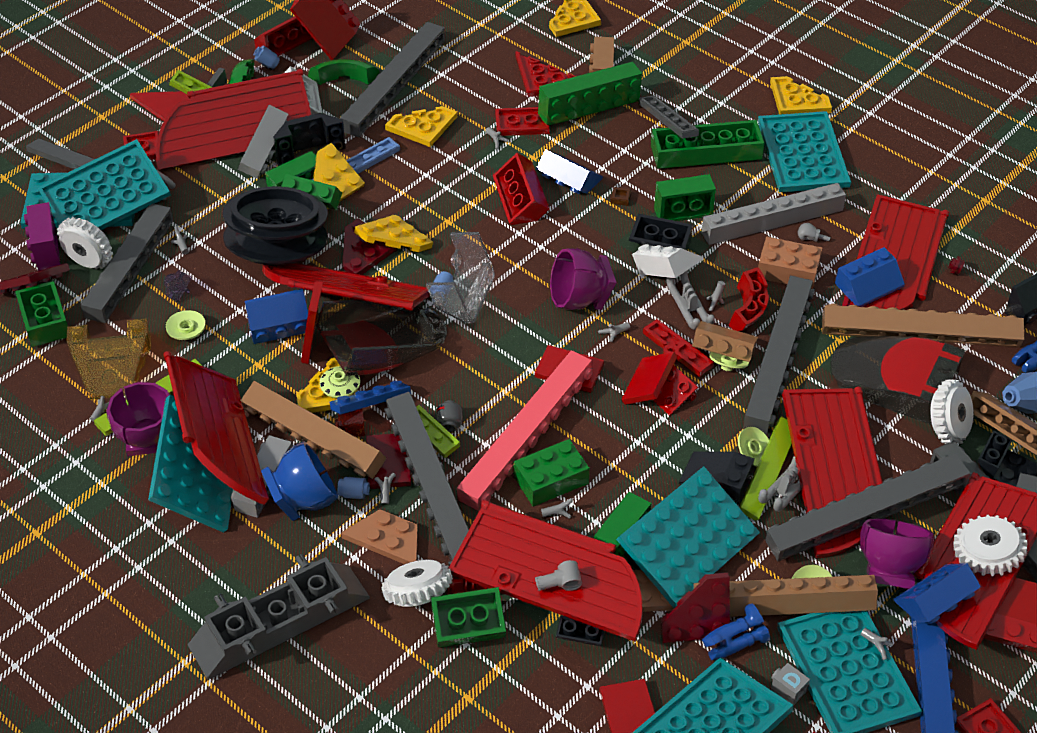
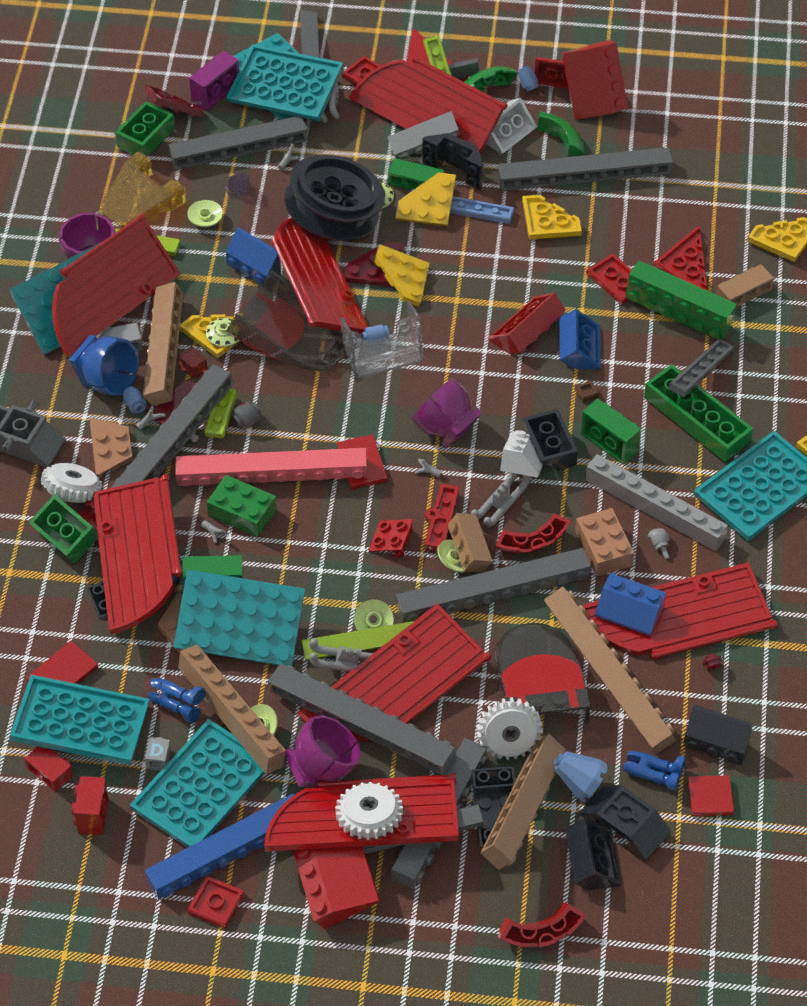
camera: 55 degrees right, 5 degrees up
(84, 243) = (221, 105): white gear -> none
(311, 322) = (249, 276): red tile -> none
(328, 194) = (395, 197): green brick -> none
(368, 398) = (226, 360): blue plate -> none
(496, 136) = (580, 273): light grey bar -> none
(565, 576) = (126, 558): light grey pin -> none
(649, 378) = (387, 514): red tile -> none
(699, 610) = (172, 660): dark red plate -> none
(717, 295) = (521, 513): light grey bar -> none
(728, 469) = (328, 611): black slope -> none
(878, 641) = (235, 789): light grey bar -> none
(939, 592) = (295, 799): blue slope -> none

